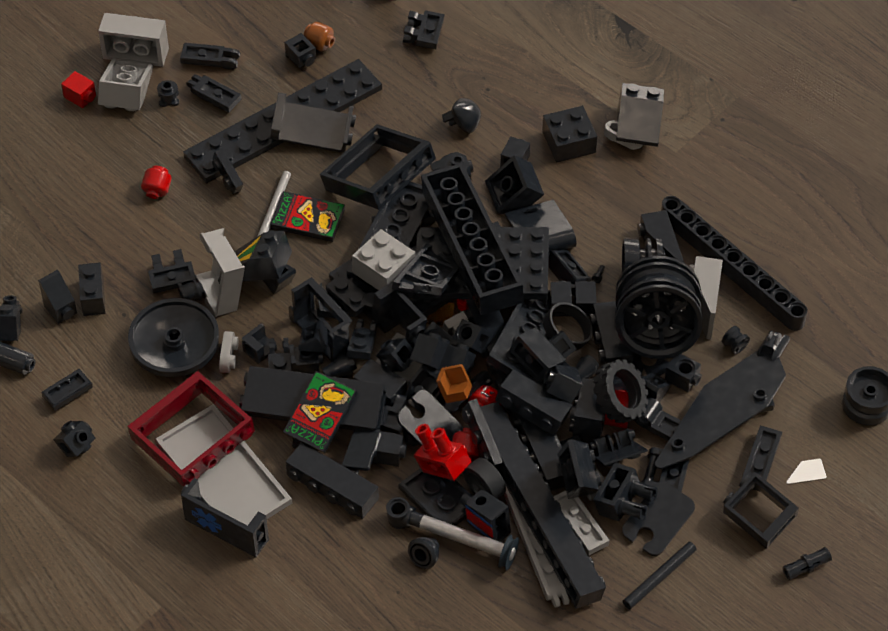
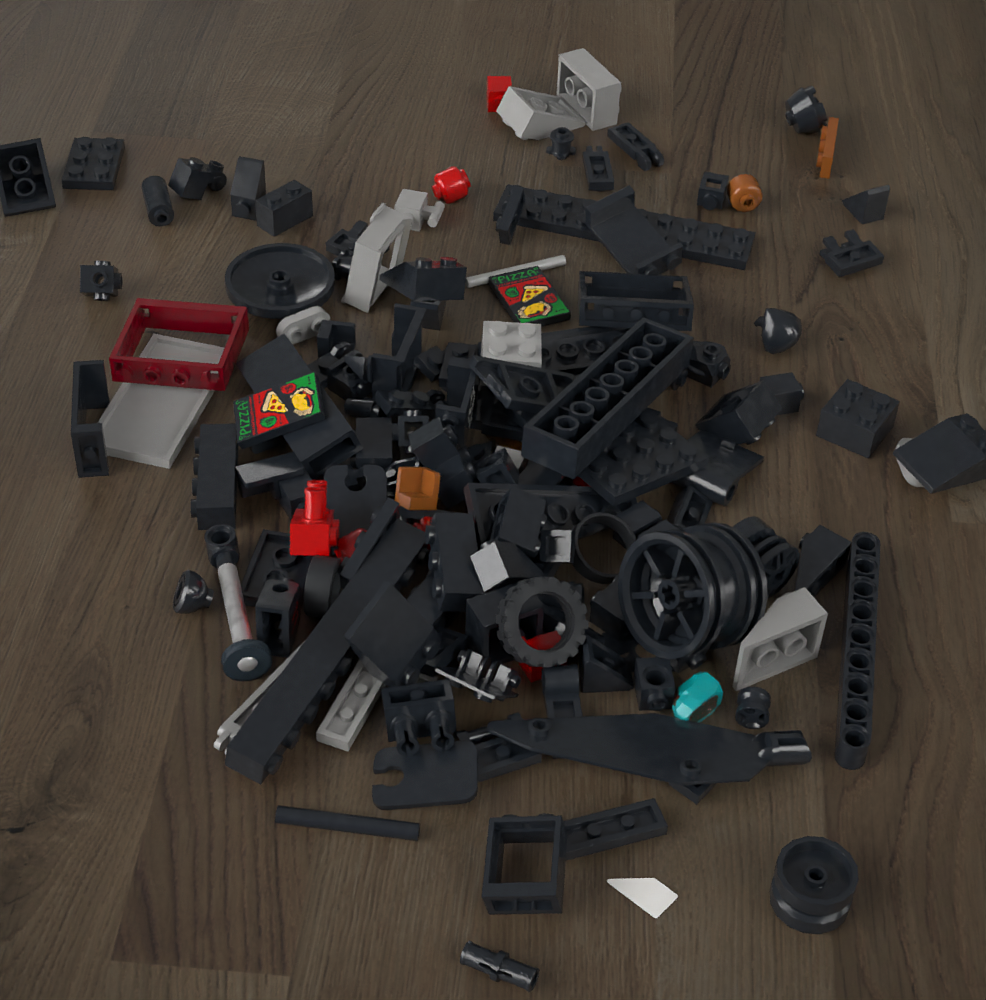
camera: 50 degrees right, 10 degrees down
(67, 389) = (157, 253): black plate -> none
(163, 220) = (416, 206): none -> light grey brick
(709, 357) = (697, 698): none -> teal rock

